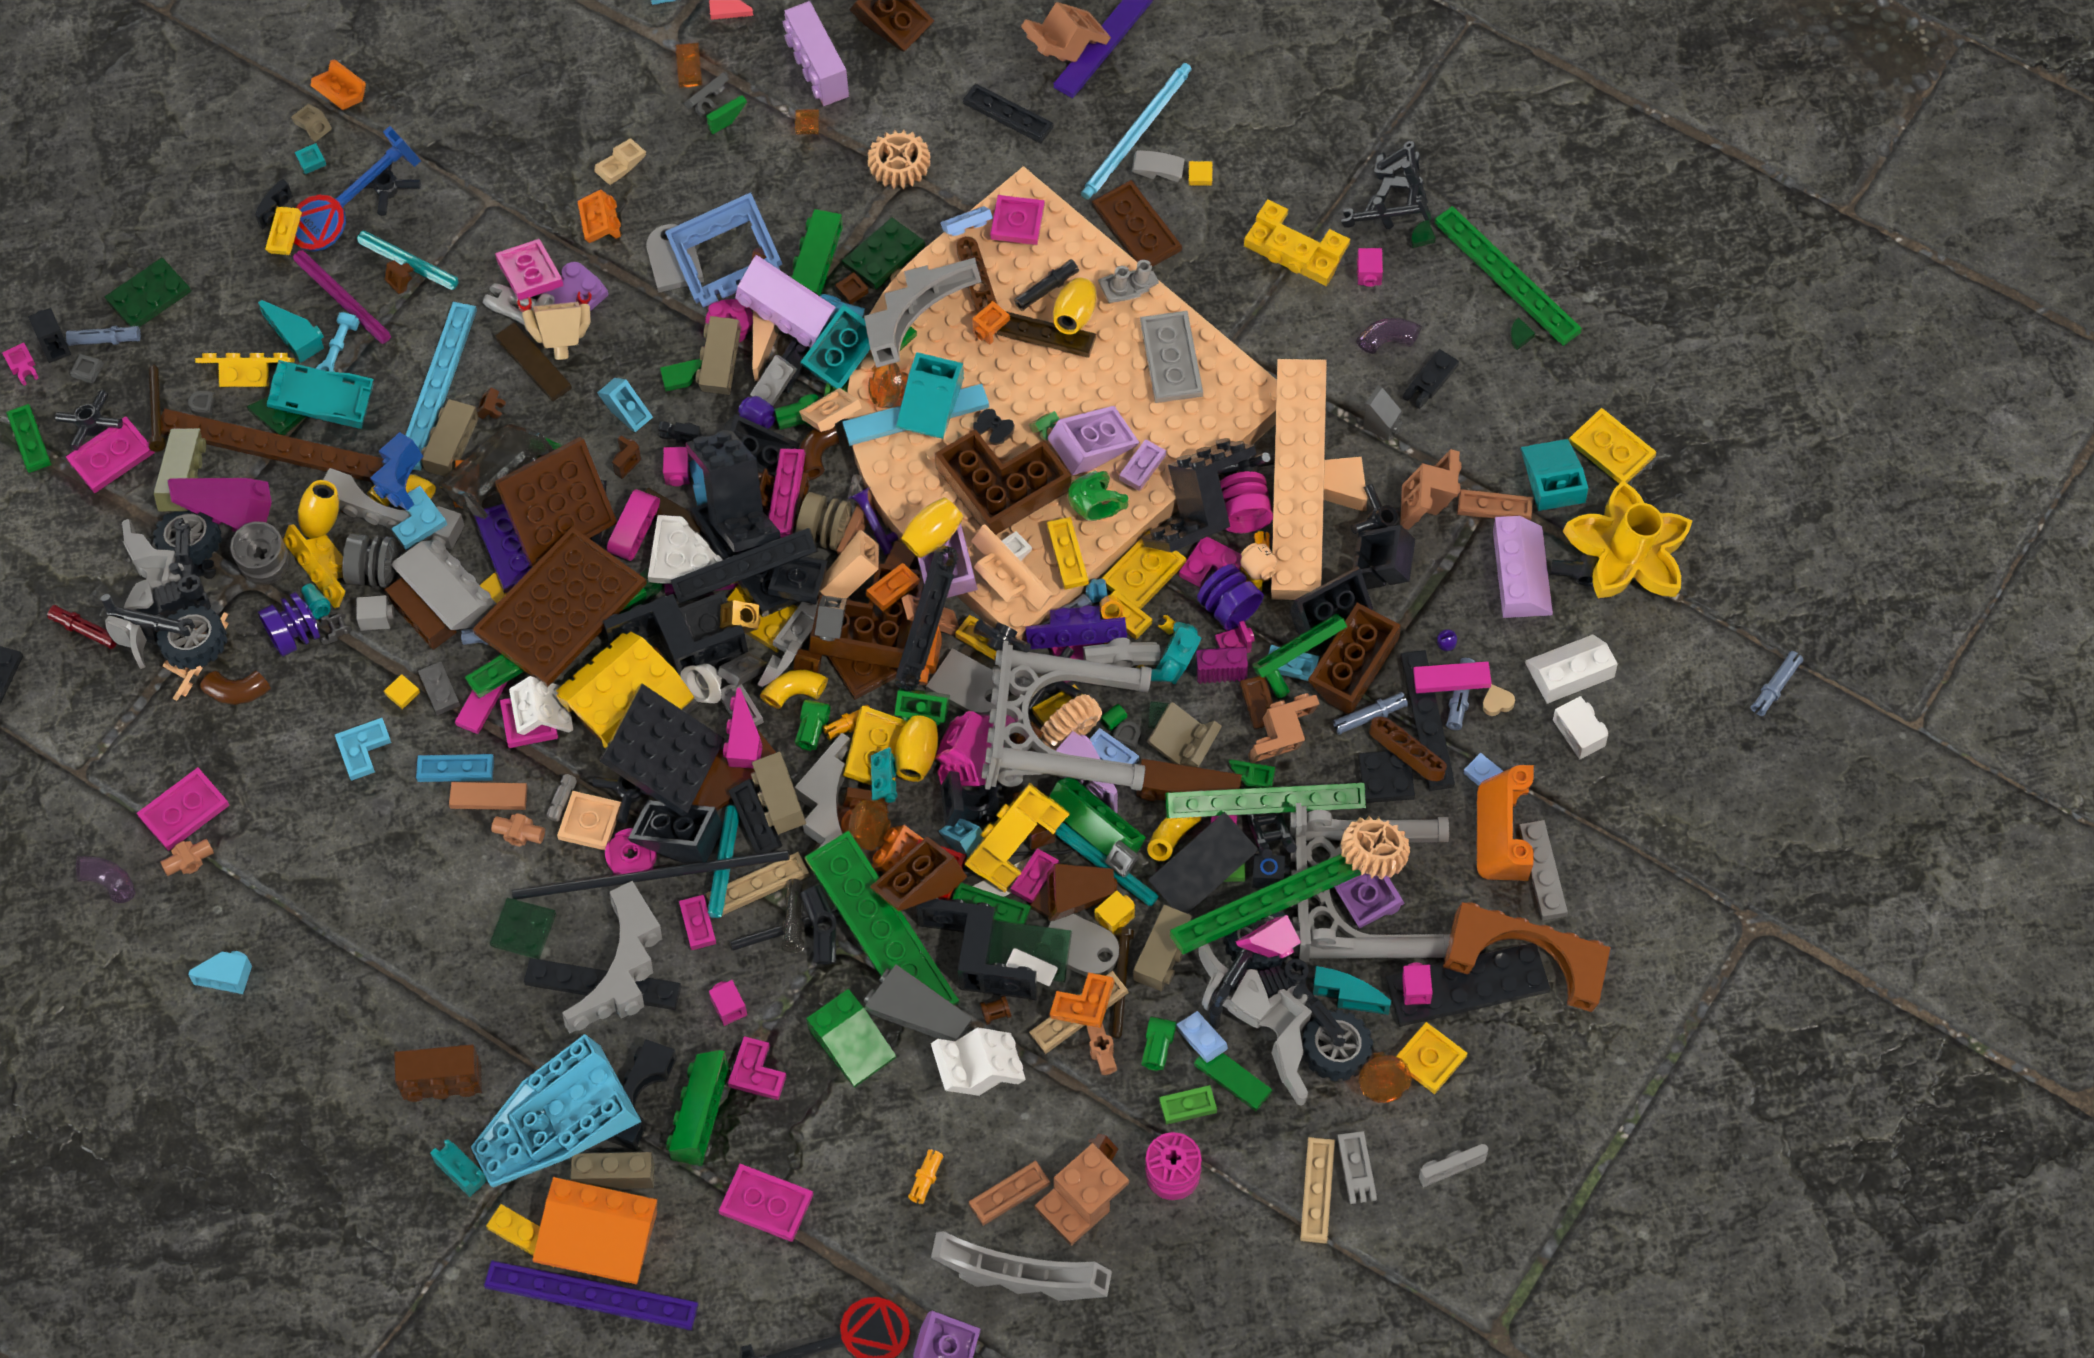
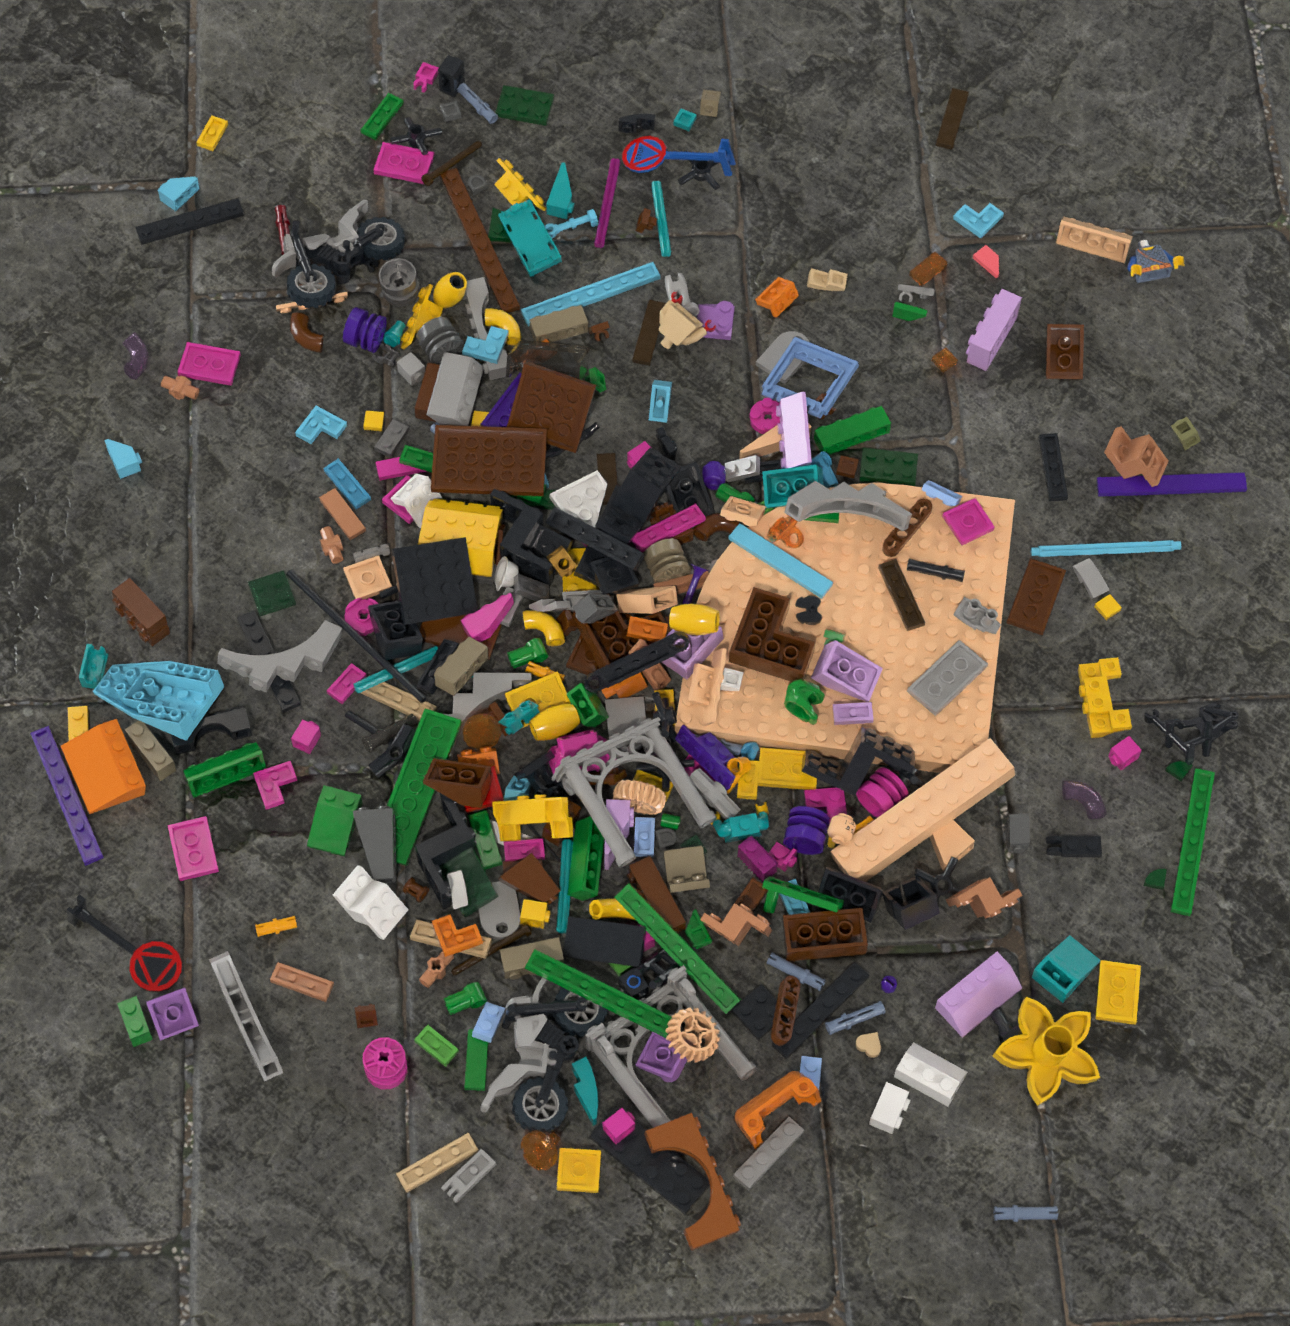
camera: 50 degrees right, 0 degrees up
(180, 460) = (418, 202): brick -> none
(224, 499) = (414, 238): magenta wedge -> none
(283, 230) = (623, 141): yellow plate -> none
(339, 85) = (746, 98): orange bracket -> none
(399, 458) = (499, 312): blue arch -> none
(529, 269) = (706, 284): dark pink plate -> none
(627, 458) = (624, 428): reddish brown bracket -> none
(633, 524) = (581, 462): dark pink beam -> none
(680, 374) = (707, 416): green tile -> none
(719, 355) = (735, 426): dark tan brick -> none
(898, 166) = (951, 432): light nougat gear -> none
(930, 395) = (795, 557): teal slope -> none
(989, 322) = (879, 555): orange bracket -> none
(1067, 553) = (753, 712): yellow plate -> none
(1074, 305) = (931, 595): yellow piece -> none
(1081, 1194) = (327, 1022): nougat bracket -> none
(1121, 858) = (570, 890): dark grey tile -> none
(1271, 938) = (576, 1013): slope -> none
(1452, 677) = (859, 1003): dark pink tile -> none
(1453, 1164) = (515, 1233): light grey hinge -> none
(1493, 505) = (1013, 948): nougat tile -> none

